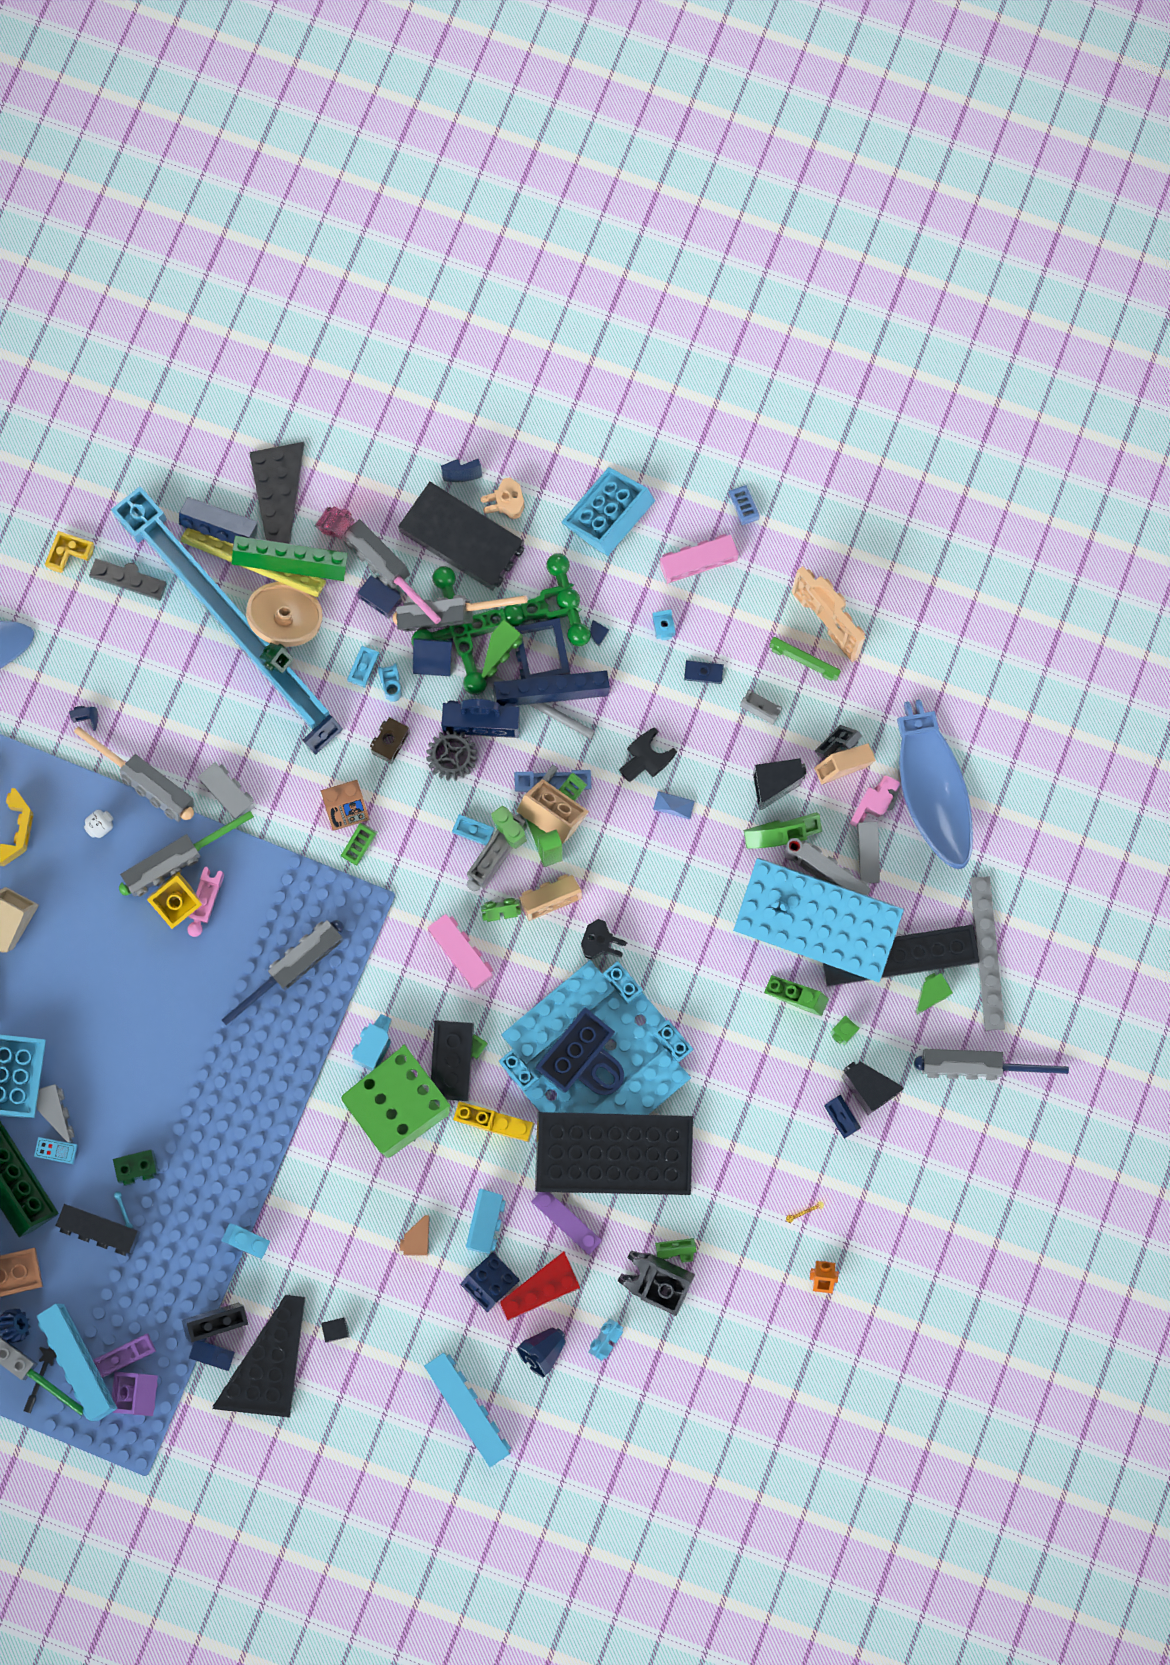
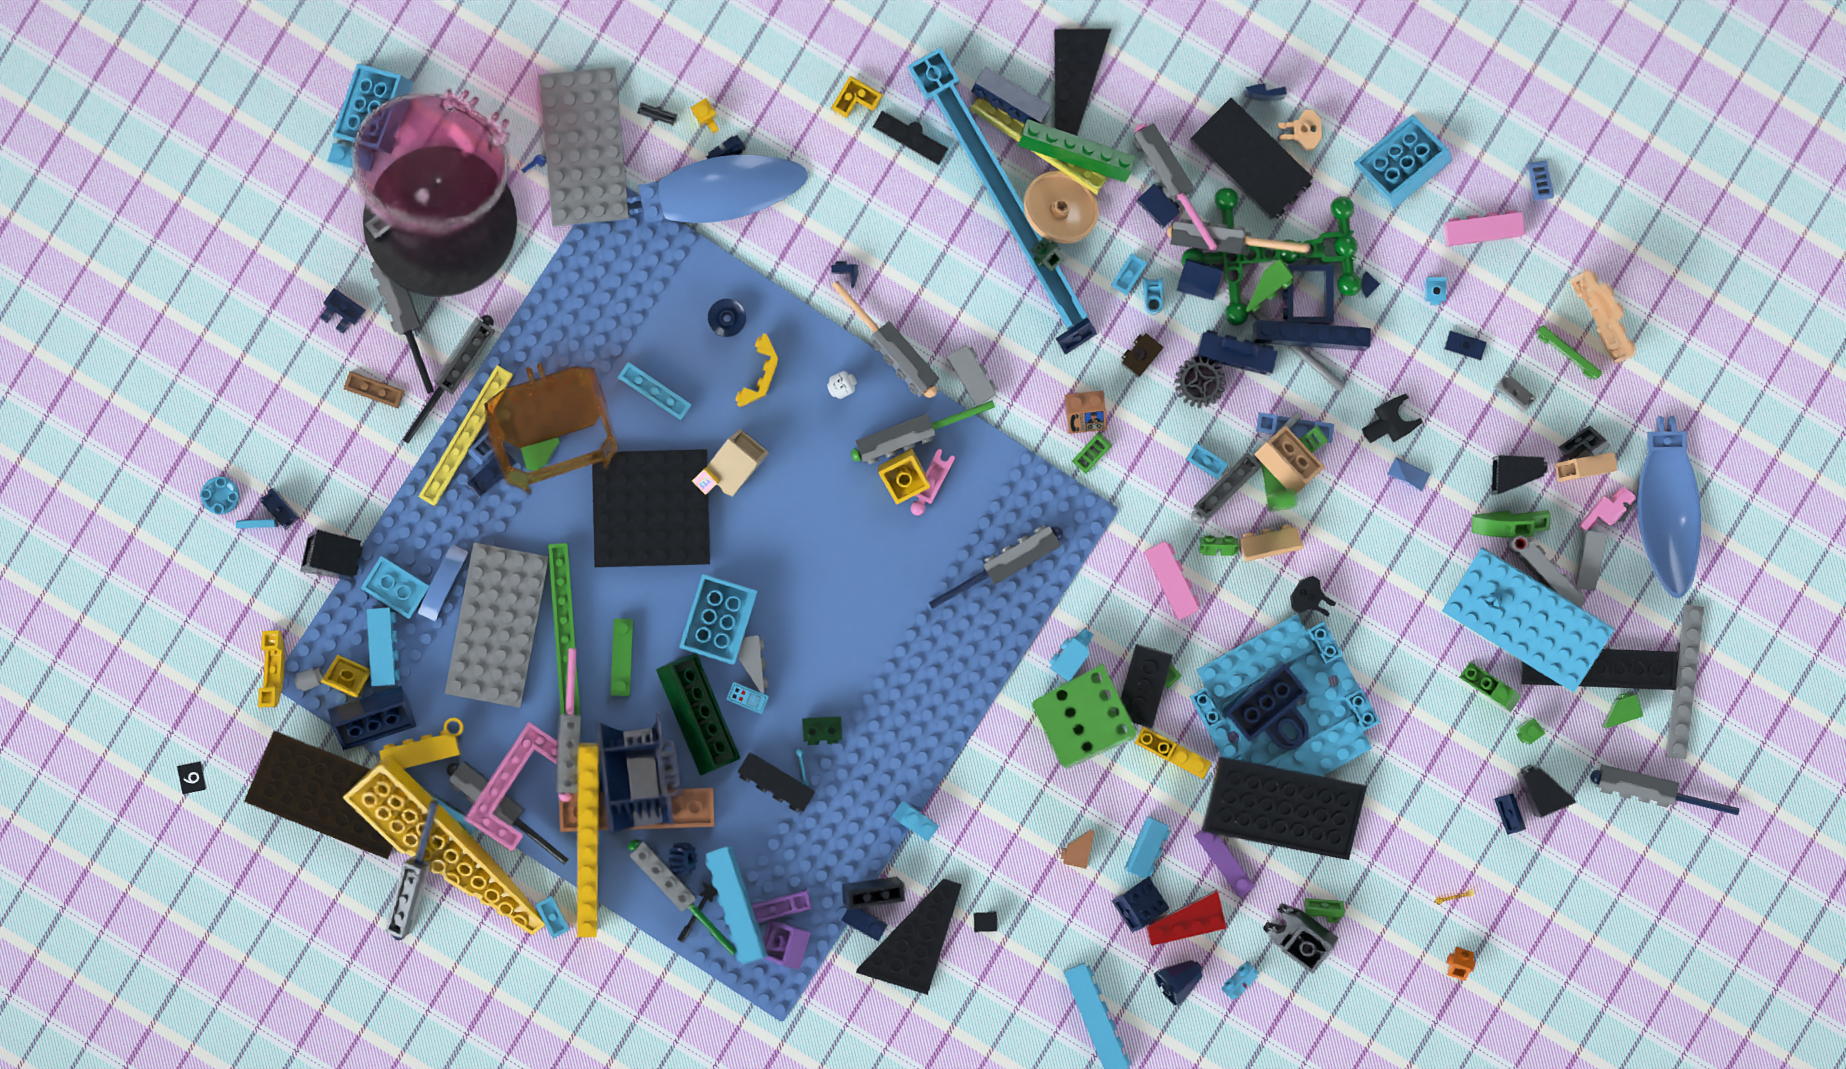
camera: 10 degrees right, 10 degrees up
(334, 522) = (1128, 121): clear pink brick -> none
(511, 829) = (1247, 475): bright green brick -> none

